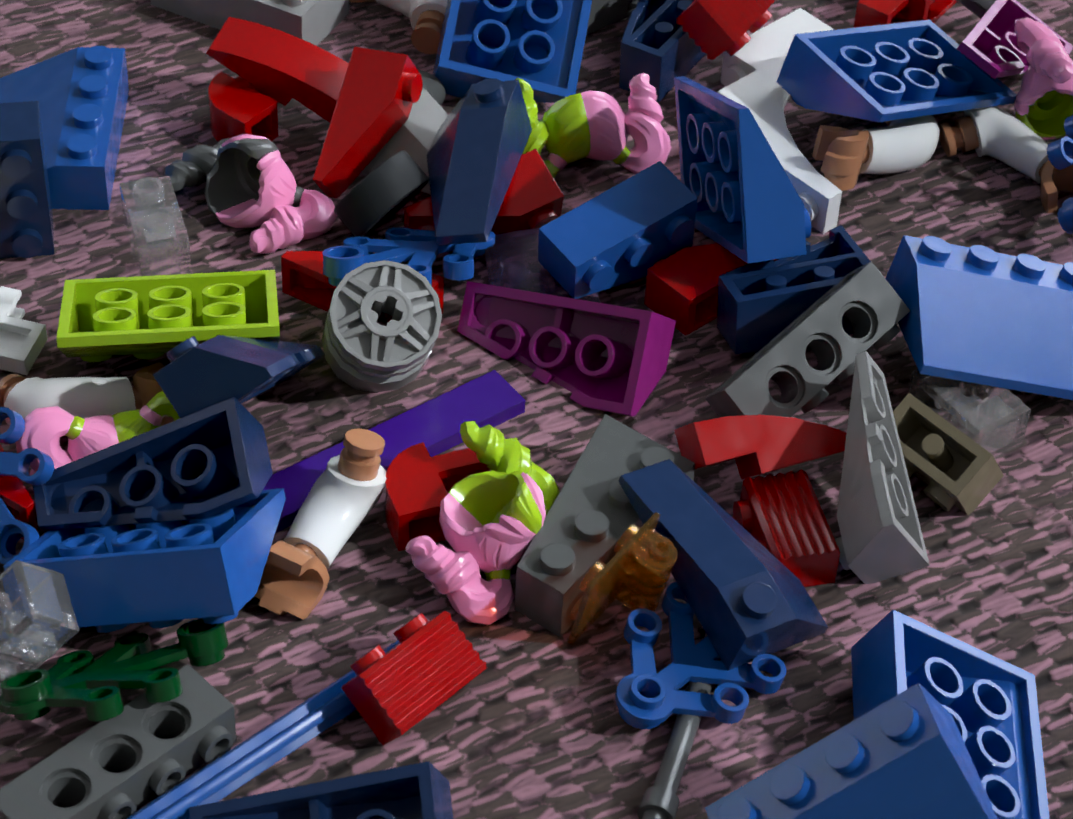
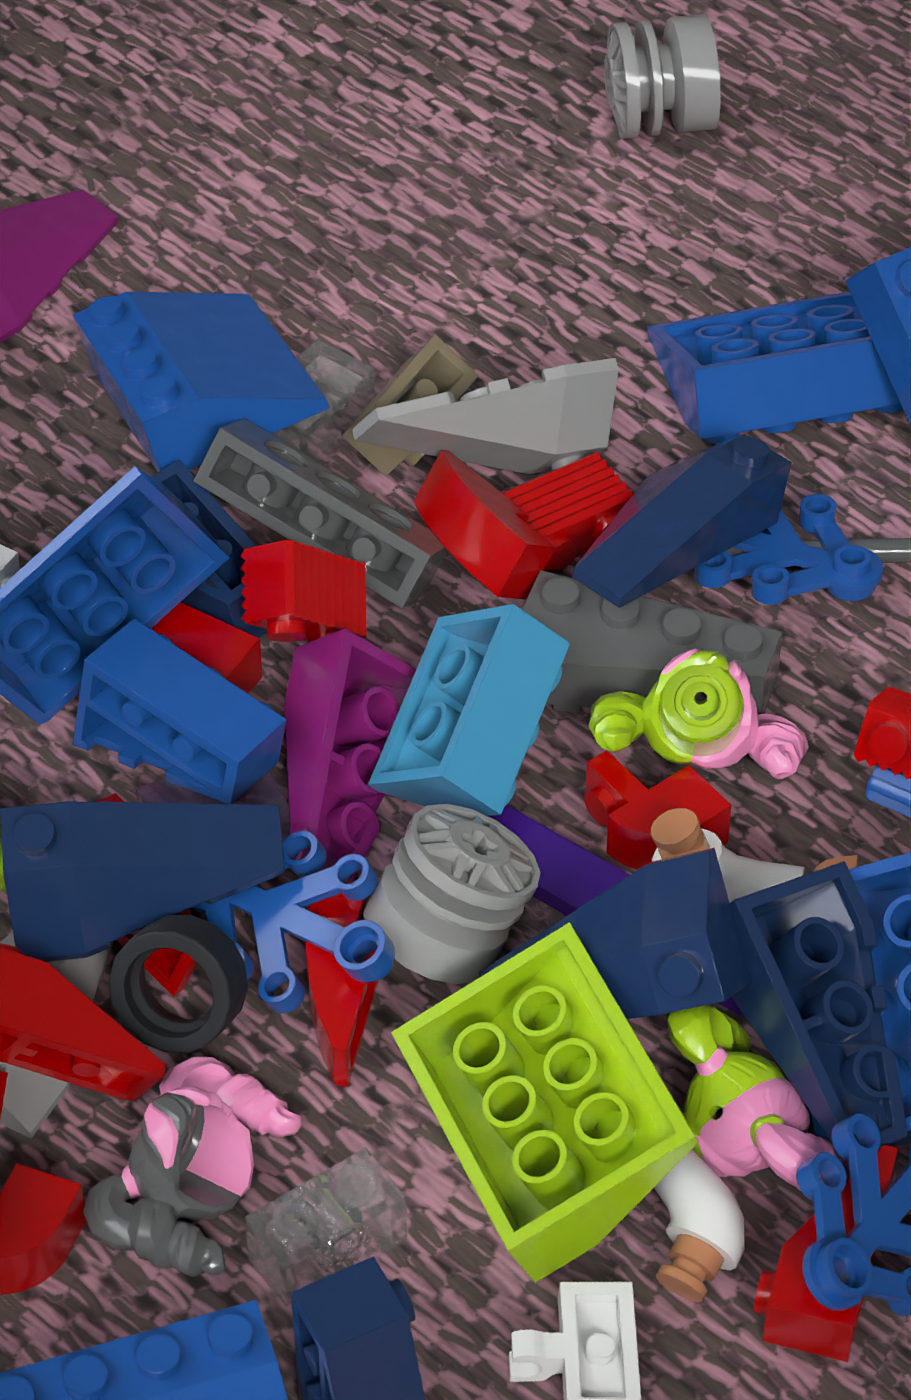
camera: 105 degrees left, 5 degrees up
(545, 378) = (471, 710): none -> dark azure slope
(632, 576) = (737, 585): clear orange hinge -> none
(707, 312) = (302, 591): none -> red brick

